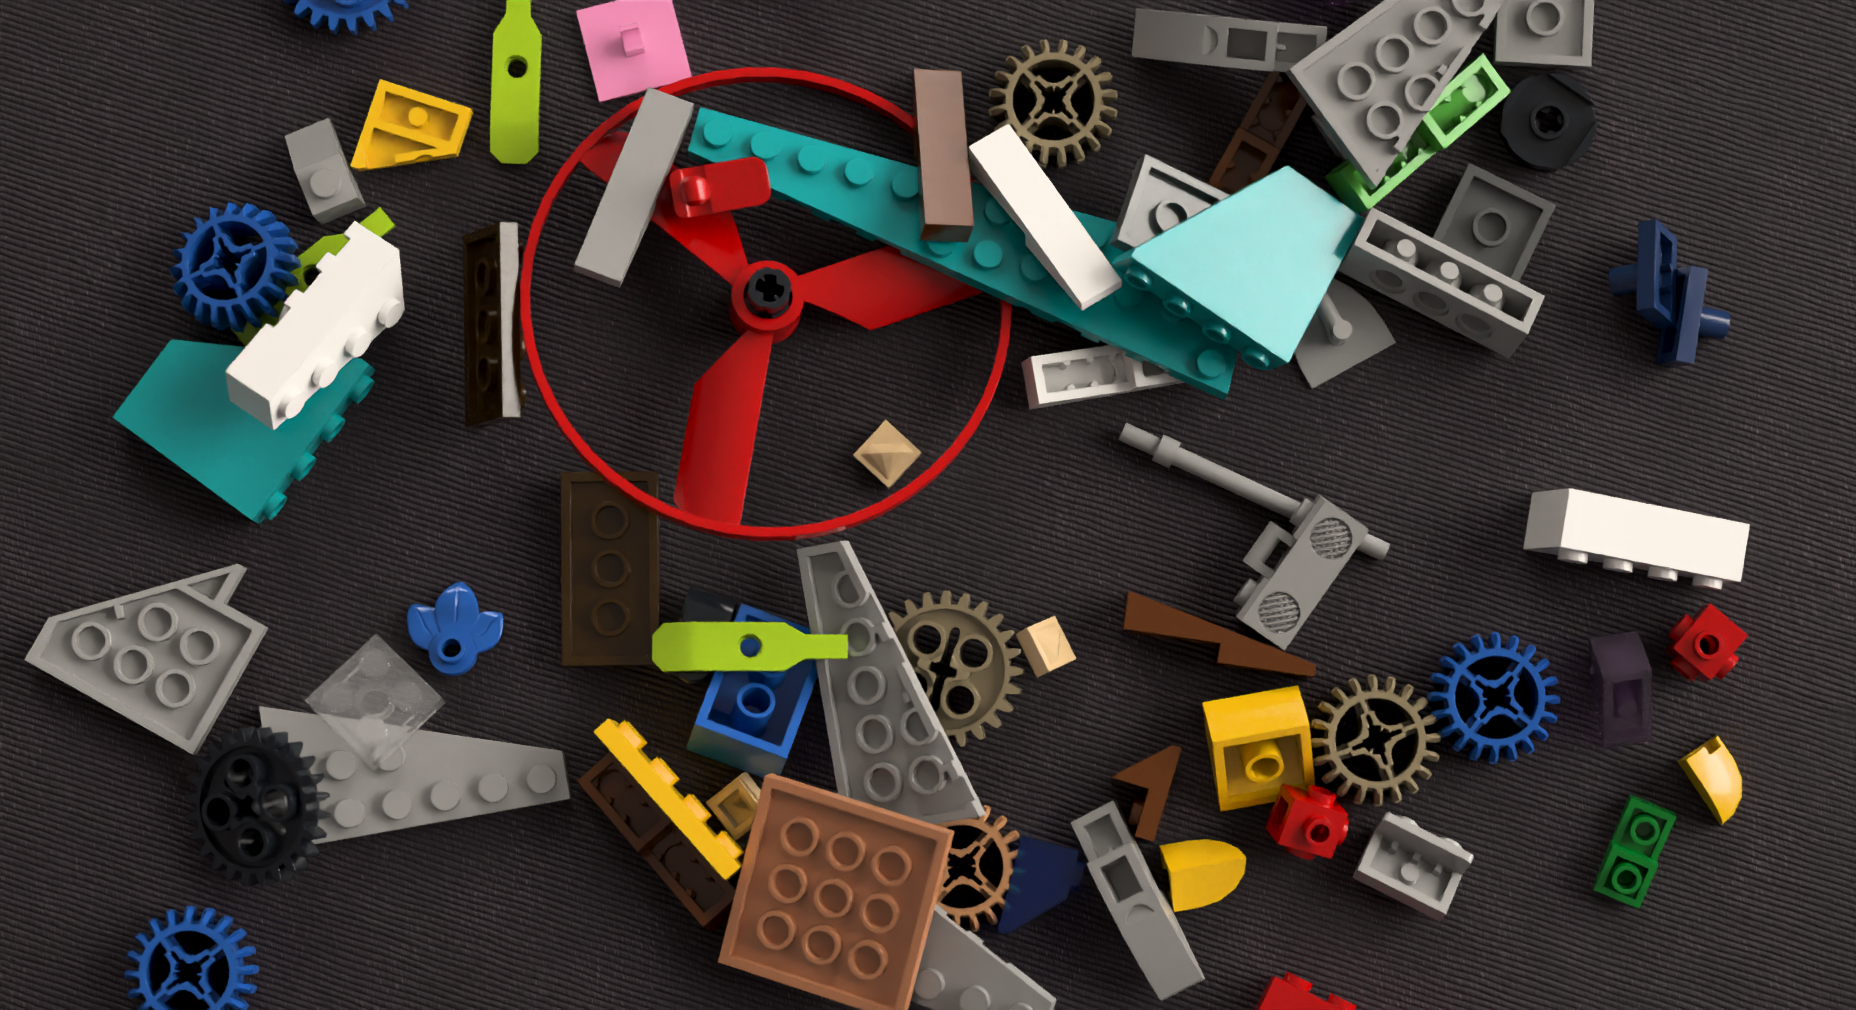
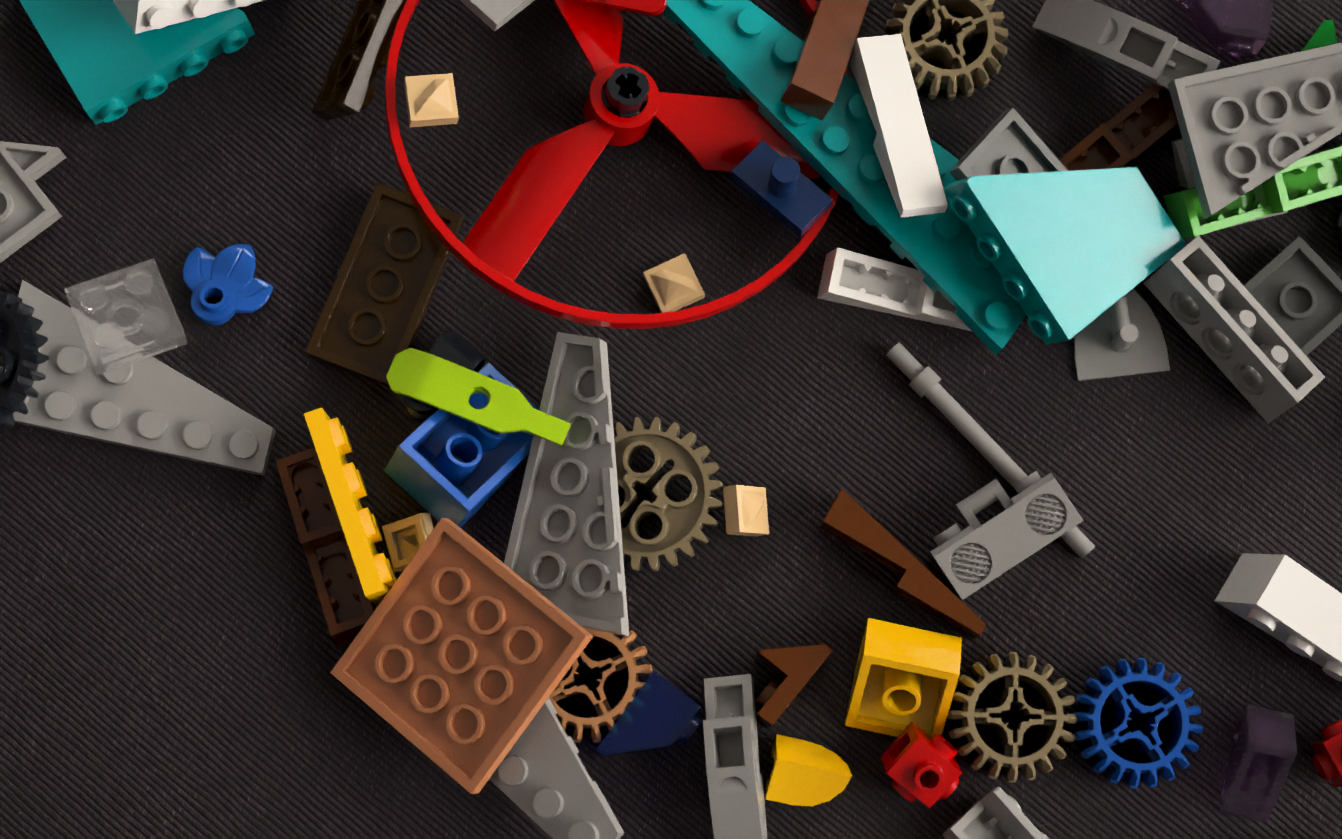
camera: 15 degrees right, 5 degrees down
(587, 381) = (431, 100): none -> tan tile
(954, 323) = (781, 188): none -> dark blue tile

